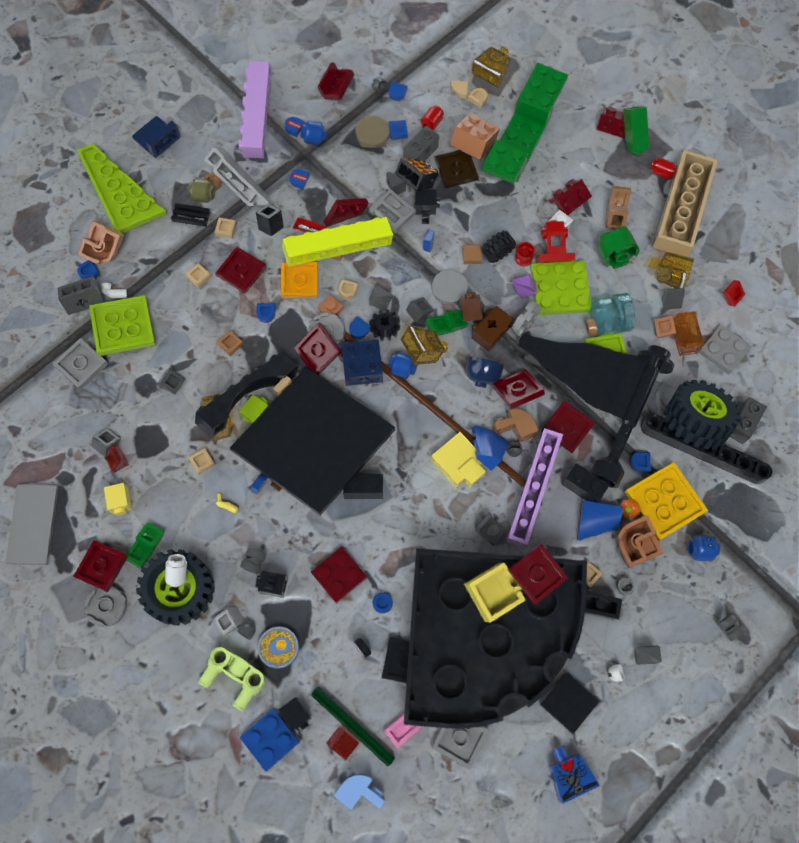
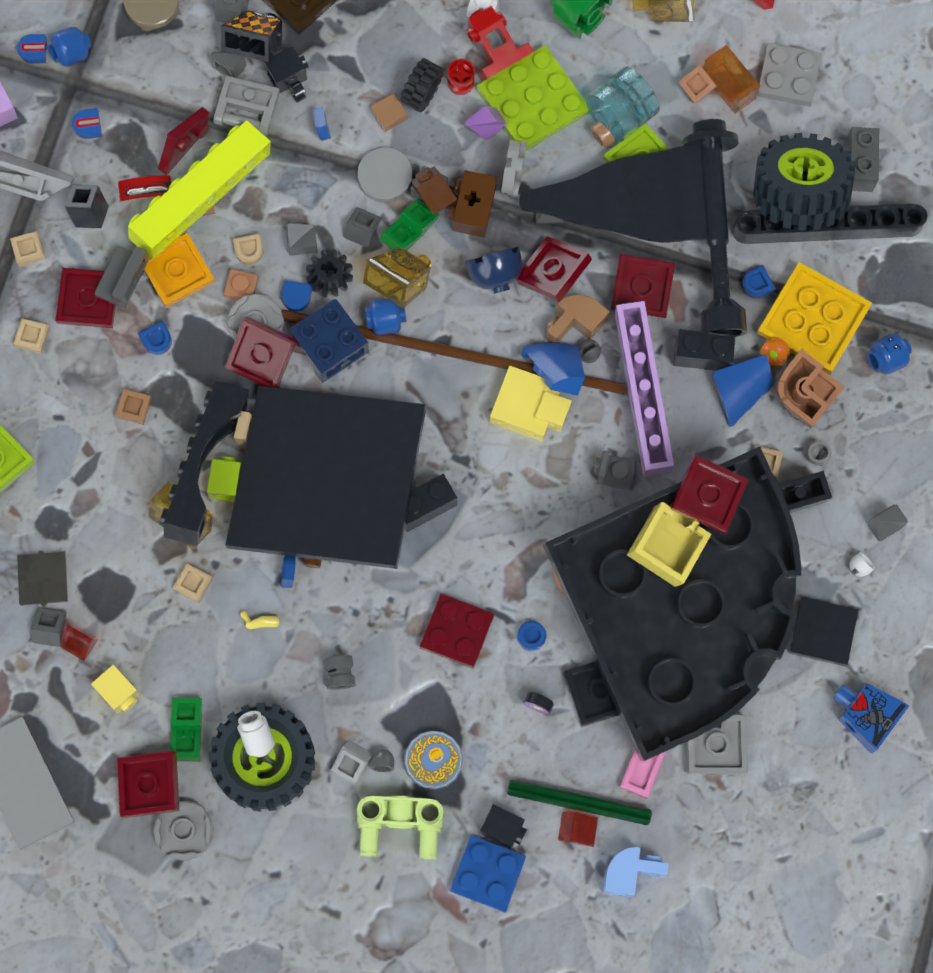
camera: 30 degrees left, 5 degrees up
(119, 412) = (42, 578): none -> clear smoke piece
(171, 381) = (85, 500): dark grey slope -> none
(266, 266) = (122, 275): none -> dark grey panel
(271, 584) = (380, 687): black brick -> none
(673, 298) = (688, 39): dark grey slope -> none

